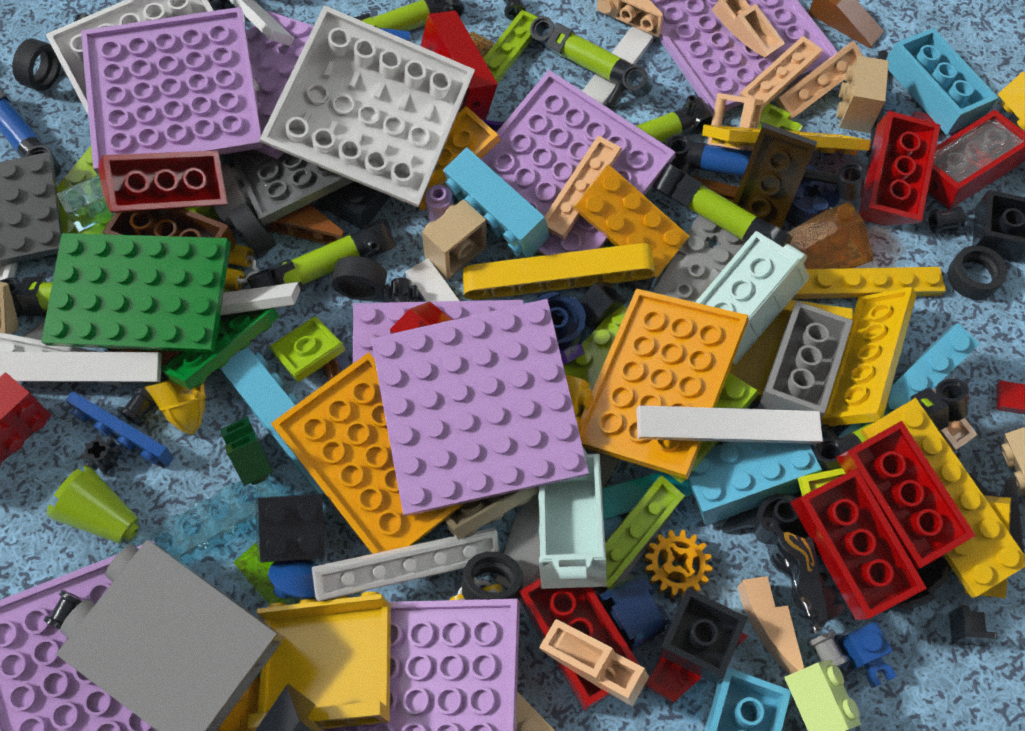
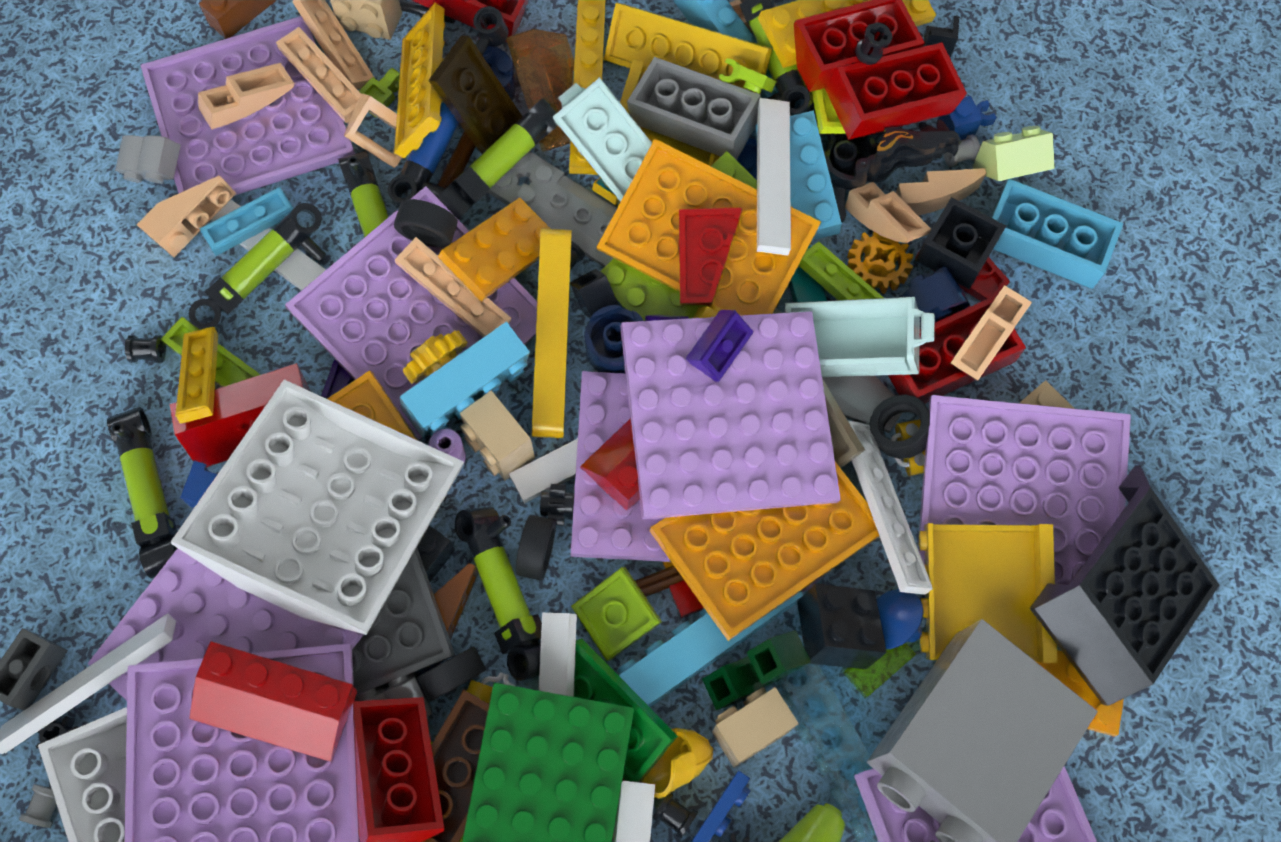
camera: 85 degrees left, 5 degrees up
(201, 455) = (754, 726): none -> tan brick
(214, 93) = (271, 701): none -> slope
(483, 25) = (197, 375): none -> yellow tile
(514, 174) = (433, 355): none -> yellow gear
(535, 383) = (720, 344): none -> dark purple slope
(631, 148) = (425, 221): none -> black tyre
(633, 47) = (246, 221): none -> medium azure tile
(638, 371) = (703, 251): none -> red wing
(726, 562) = (885, 214): none -> light nougat slope
(841, 403) = (753, 80): none -> lime plate
(899, 493) = (881, 42): none -> black bush

